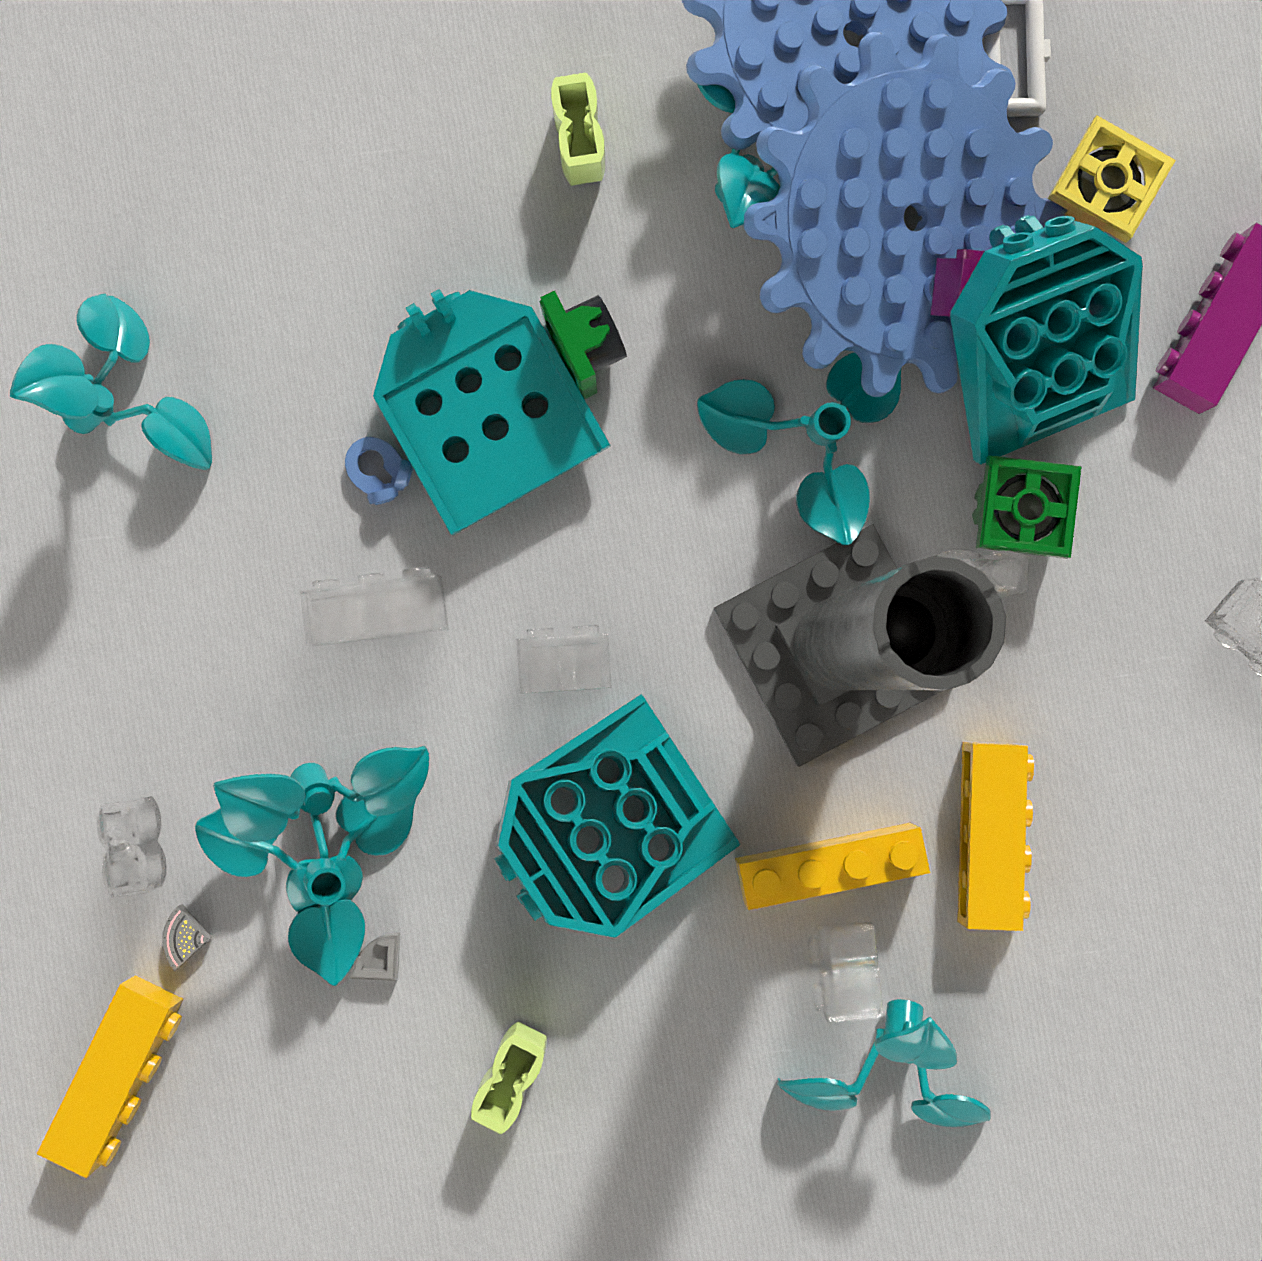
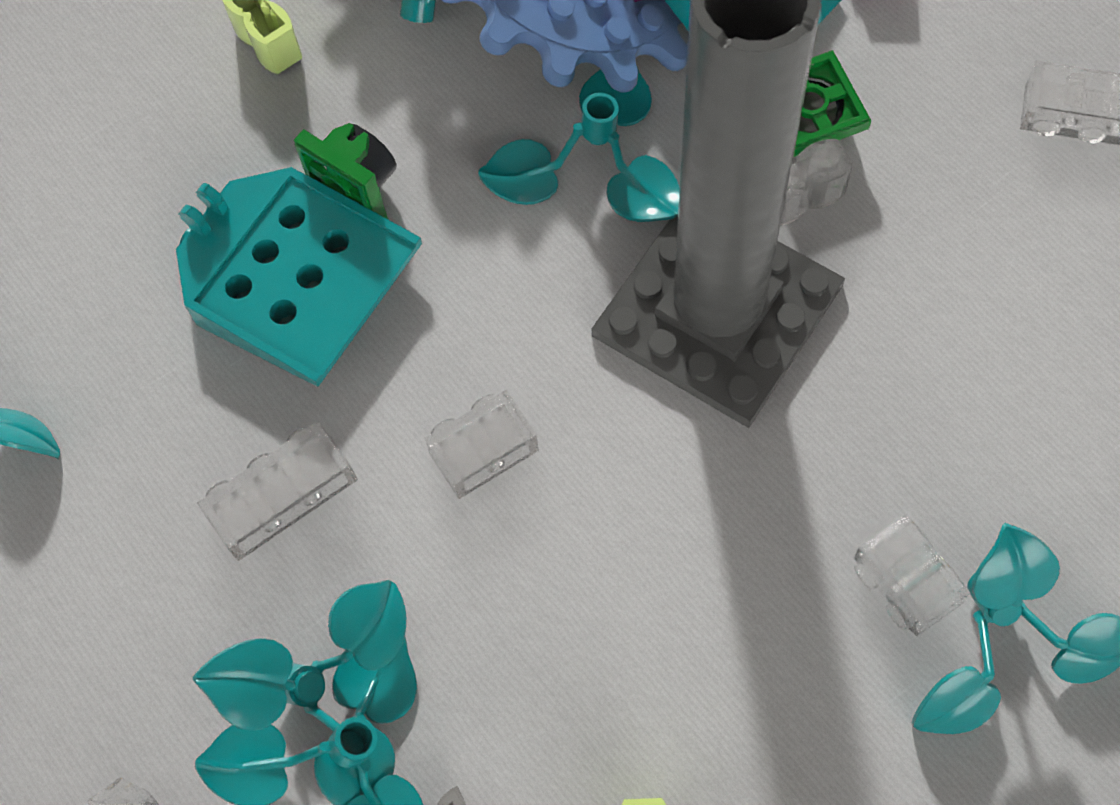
camera: 20 degrees left, 20 degrees down
(376, 490) = (221, 391): medium blue piece -> none
(542, 846) = (592, 627): teal hinge -> none
(832, 865) = (832, 487): yellow brick -> none
(994, 836) = (962, 385): yellow brick -> none

